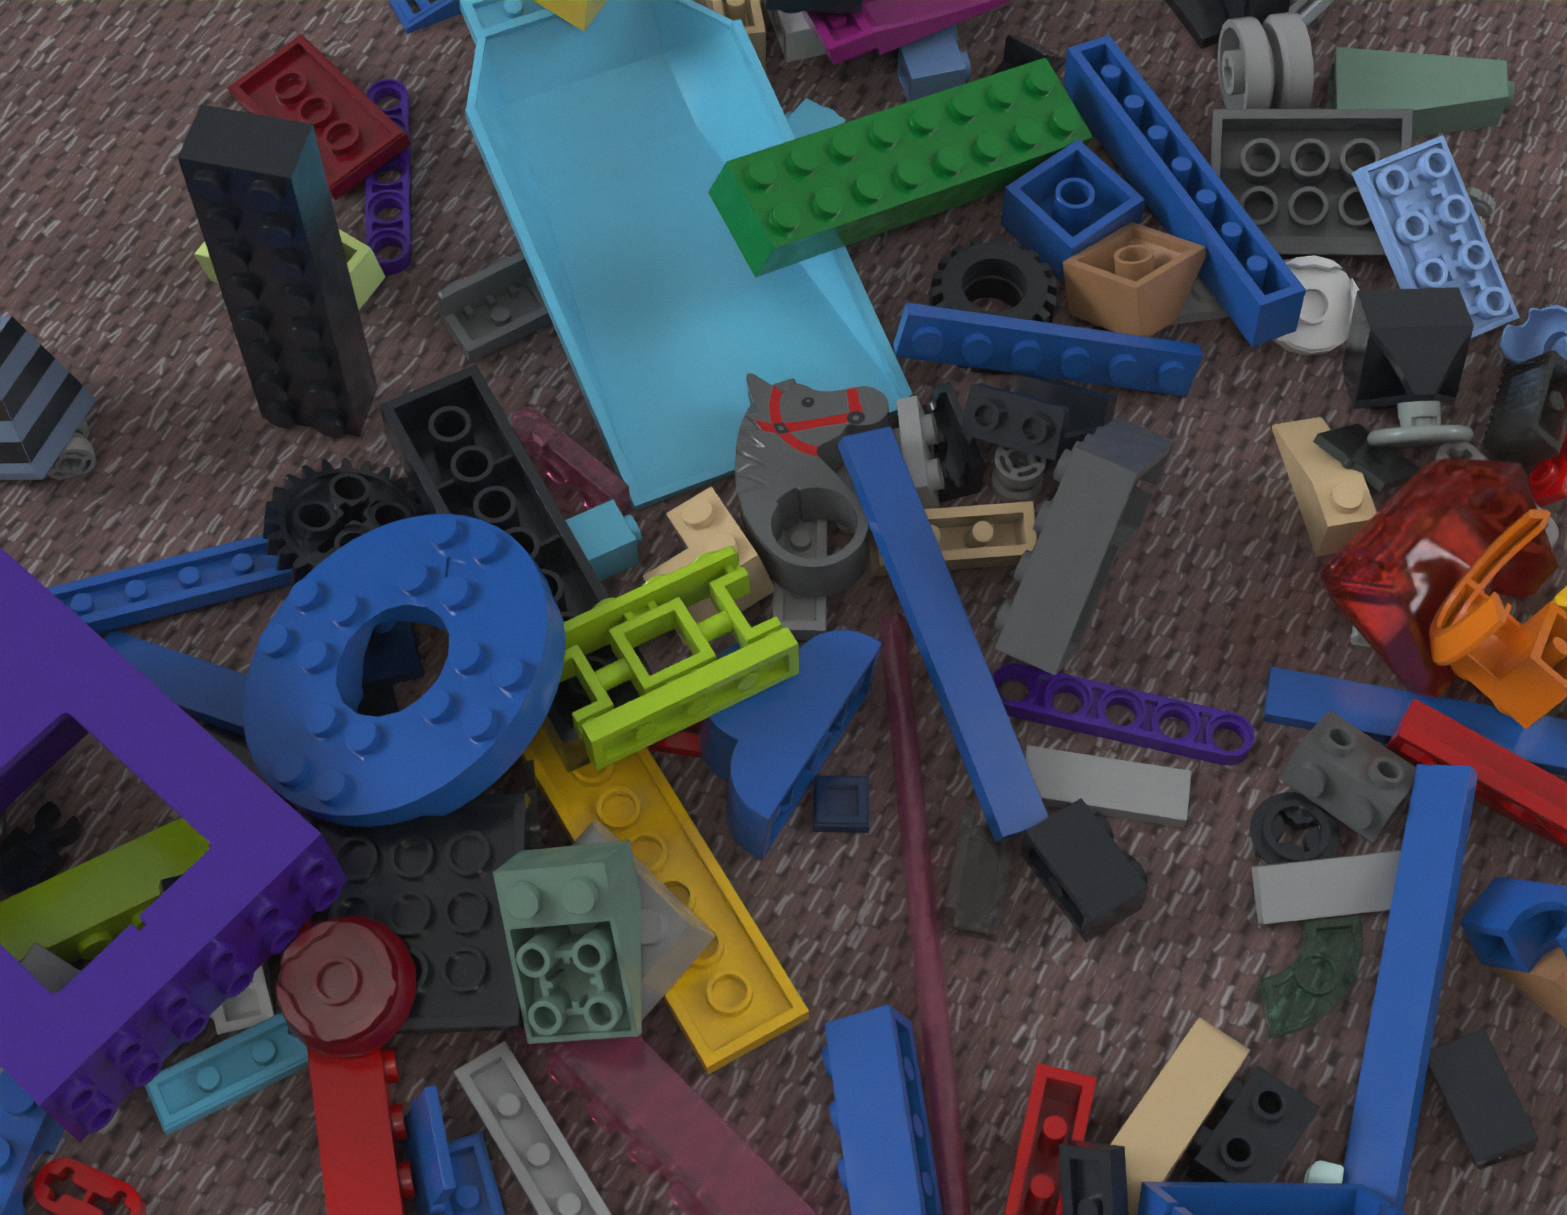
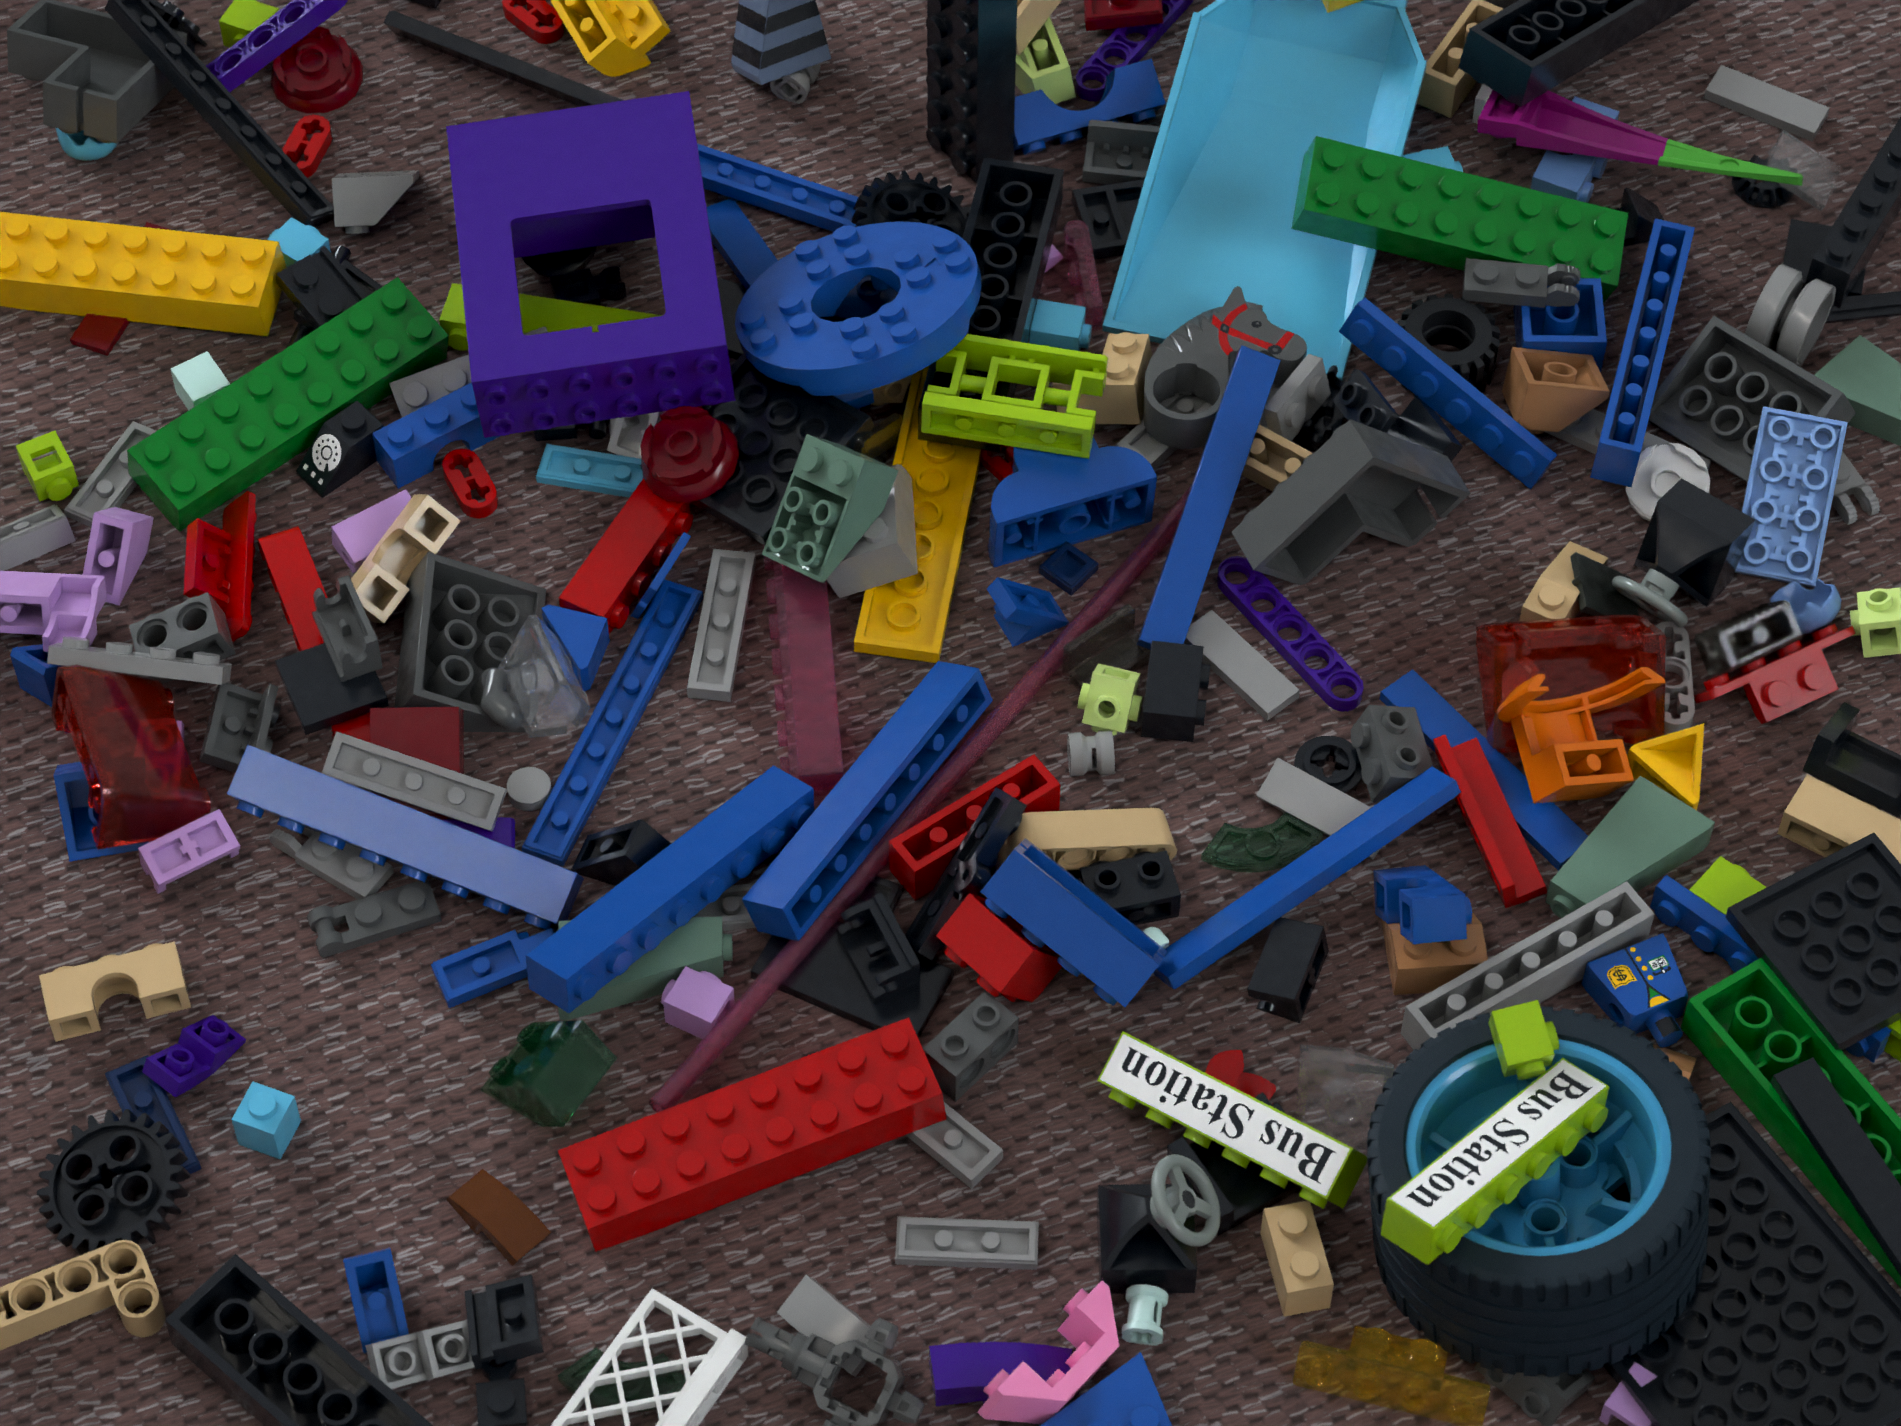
camera: 40 degrees right, 5 degrees down
(439, 242) = (1128, 93): none -> blue arch
(538, 378) = (1108, 214): none -> black wing
(850, 890) = (1024, 610): none -> blue slope
(1017, 192) = (1520, 283): none -> dark grey hinge
(1035, 927) = (1120, 689): none -> yellowish green brick
(1064, 1005) = (1080, 753): none -> light grey wheel

